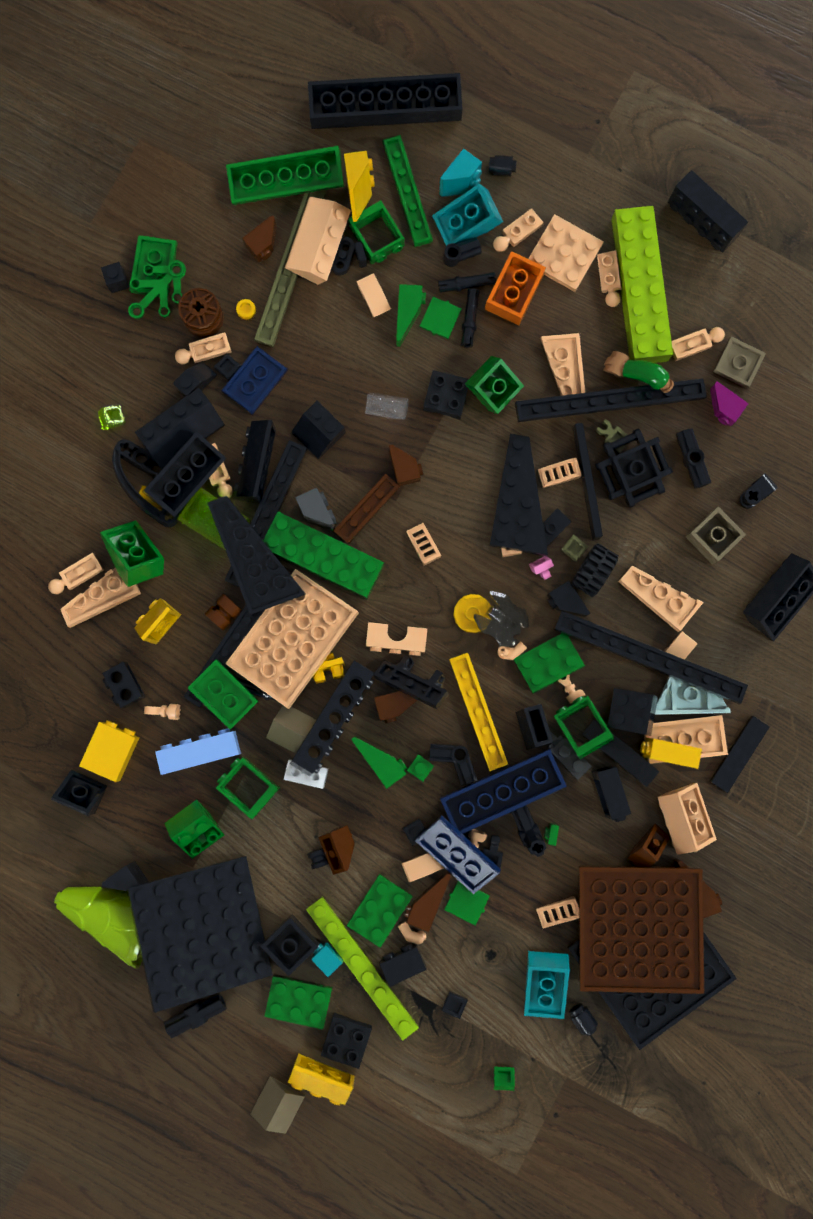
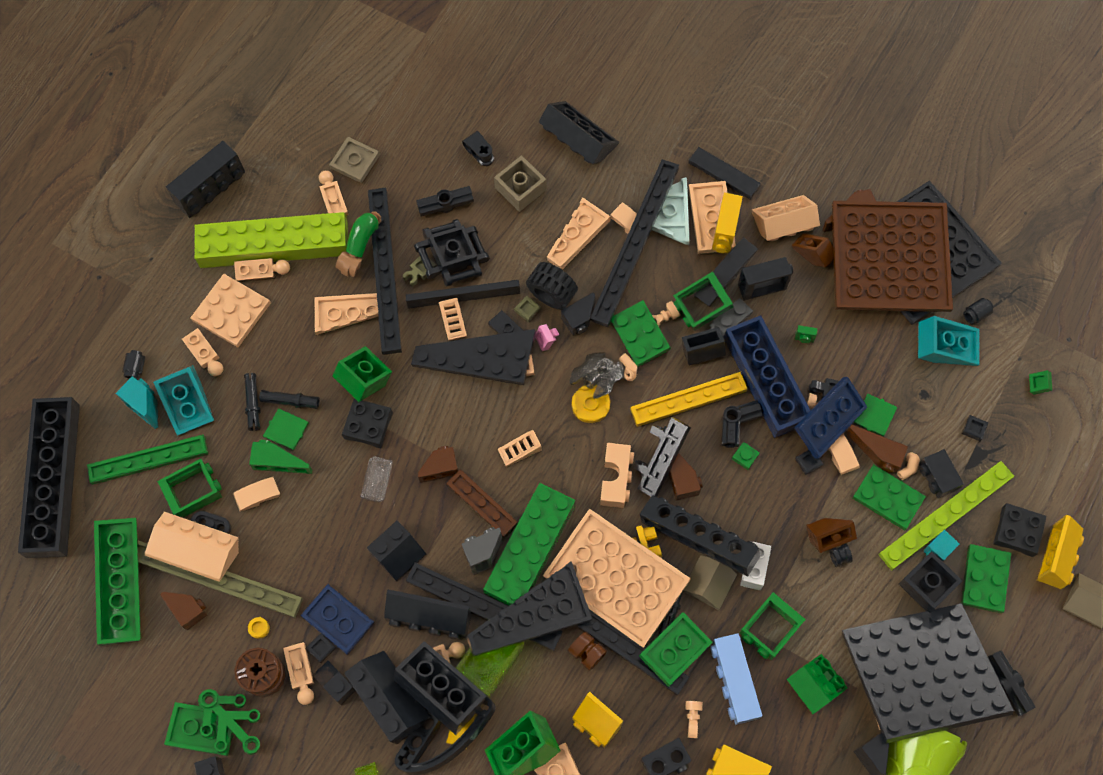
camera: 85 degrees left, 15 degrees down
(358, 181) = (133, 503): yellow slope -> none
(360, 254) = (212, 505): black tile -> none
(383, 764) = (748, 483): green slope -> none
(463, 251) = (219, 405): black piece -> none
(515, 288) = (264, 353): orange brick -> none
(529, 831) = (807, 353): black piece -> none
(569, 917) = (873, 332): light nougat slope -> none
(632, 711) = (687, 257): black brick -> none
(726, 404) = (394, 171): magenta slope -> none

